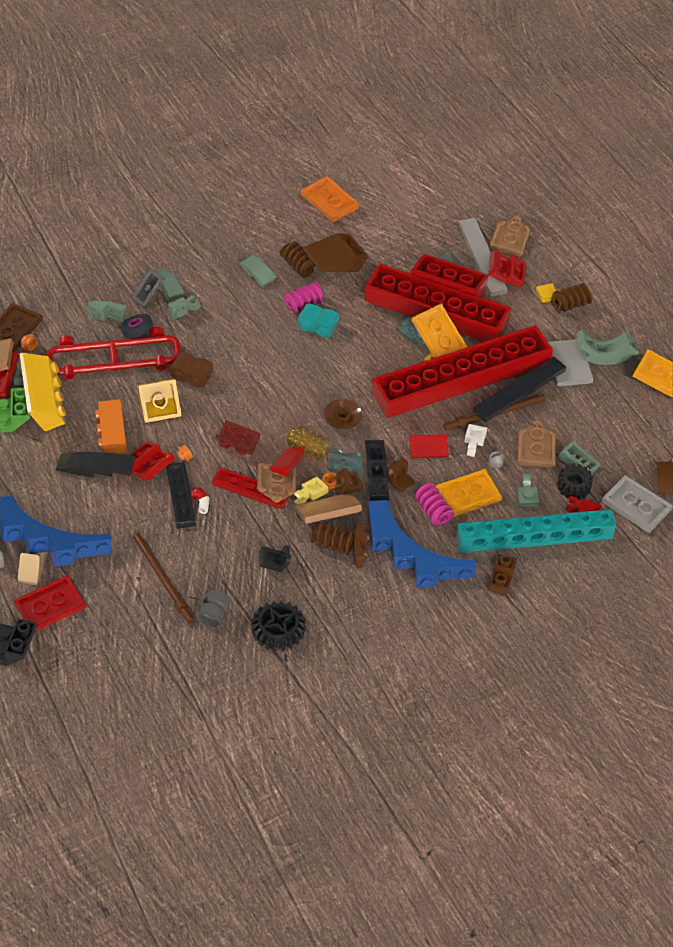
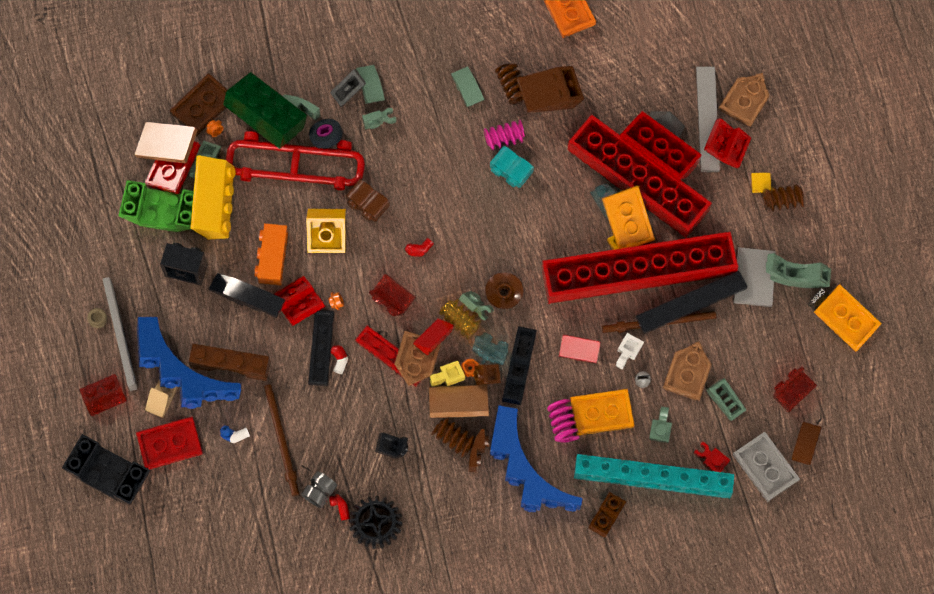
camera: 15 degrees right, 20 degrees up
(27, 447) = (184, 263): none -> black brick
(74, 316) = (265, 110): none -> dark green brick
(113, 584) = (233, 436): none -> arm
(116, 518) = (244, 363): none -> reddish brown arch
(240, 619) = (342, 506): none -> red arm
(251, 399) = (419, 250): none -> red arm
(317, 427) = (473, 302): none -> sand green plate
(398, 475) = (539, 379): reddish brown bracket -> none
(578, 473) = (708, 436): black tyre -> none
(638, 437) = (794, 389): none -> clear red bracket

